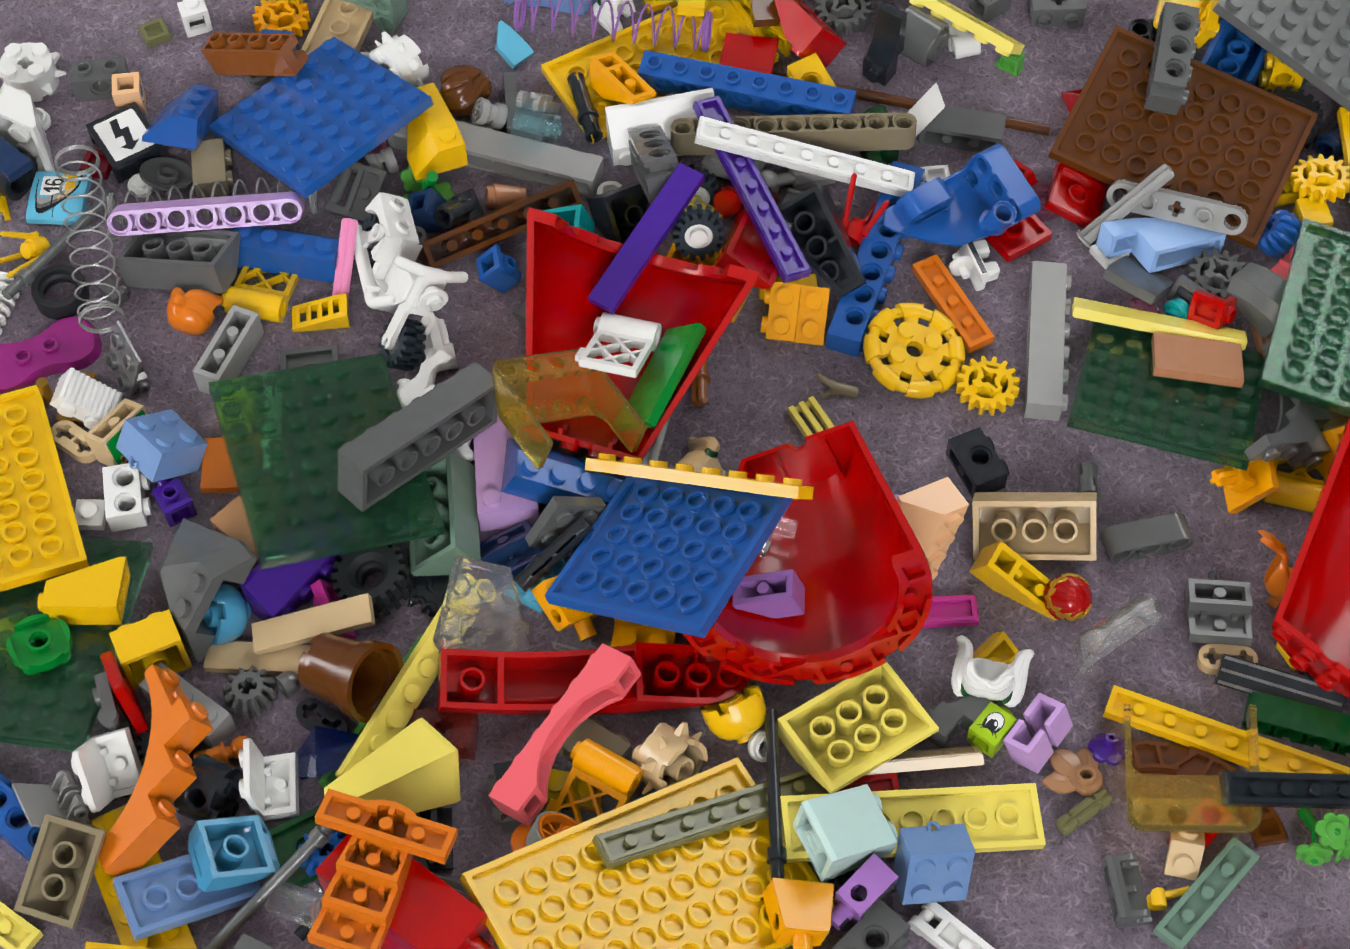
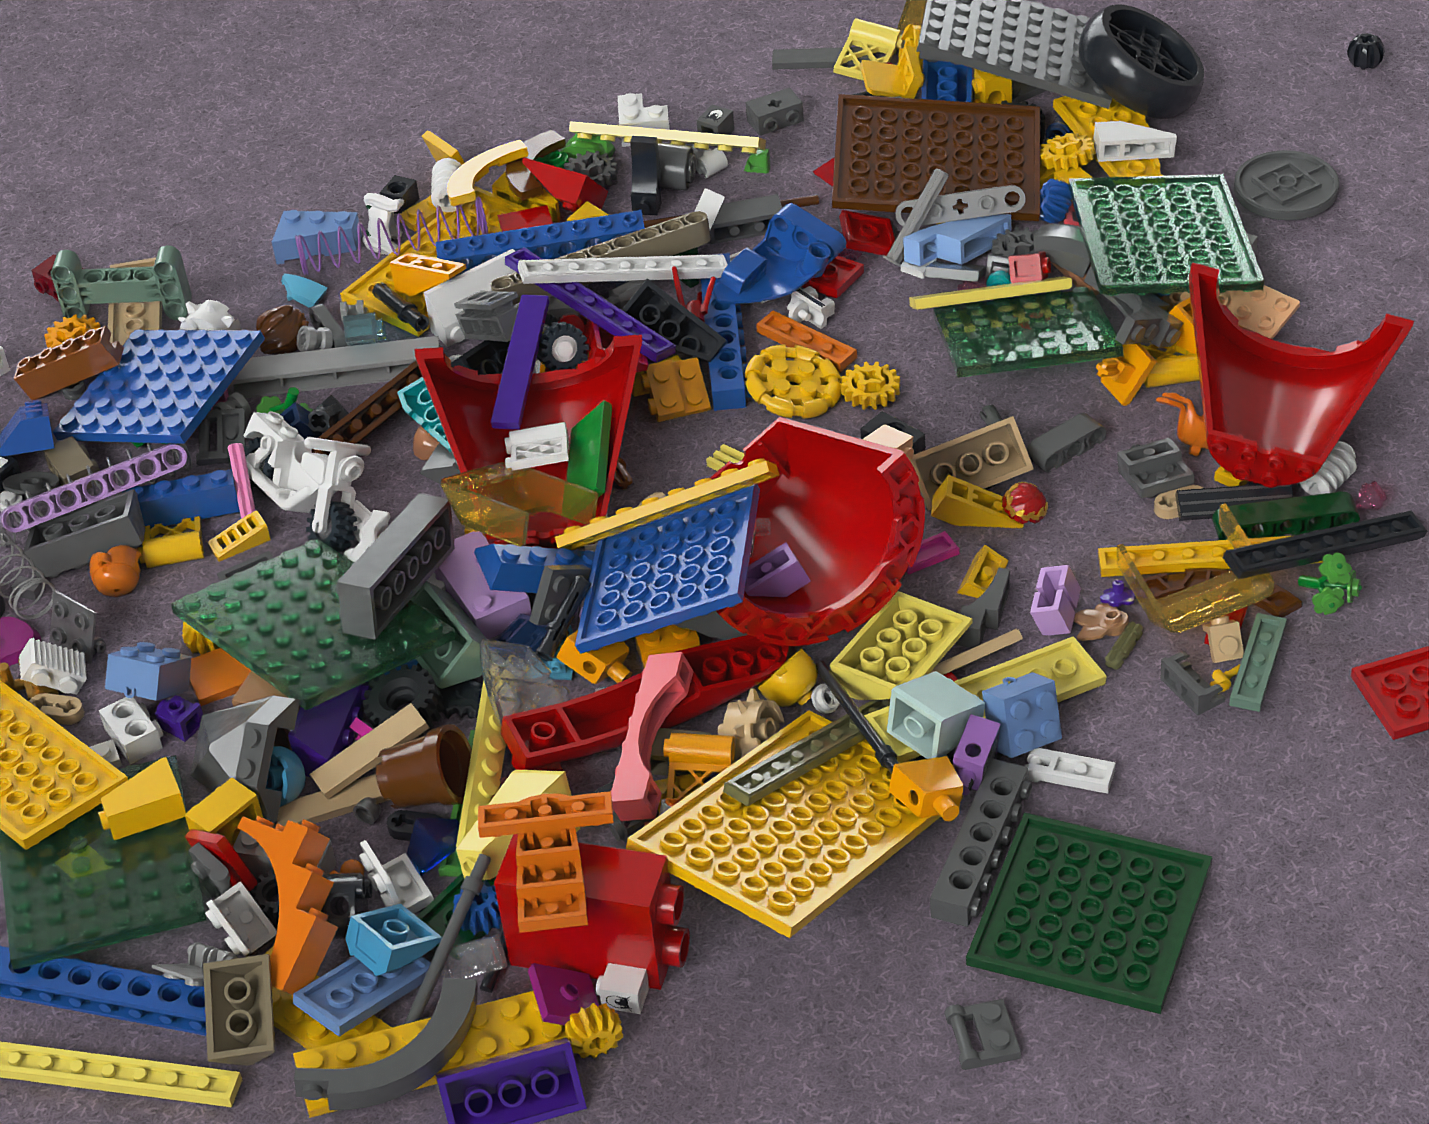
camera: 20 degrees left, 15 degrees down
(42, 658) = (133, 851): green plate -> none
(105, 434) = (89, 684): tan brick -> none
(229, 348) = (168, 584): light grey brick -> none
(249, 692) = (339, 824): dark grey gear -> none
(434, 139) = (277, 368): yellow wedge -> none
(498, 270) = (389, 446): blue brick -> none
(501, 195) = (356, 395): nougat cone -> none
(837, 388) = (740, 432): dark tan bar -> none
(989, 678) = (983, 575): white hair -> none
(991, 729) = (1014, 613): lime brick -> none
(1046, 341) = (902, 339): light grey brick -> none
(1134, 618) = (1084, 497): clear wedge -> none
(1172, 58) = (899, 99): dark grey brick -> none
(1197, 360) = (1038, 302): nougat tile -> none

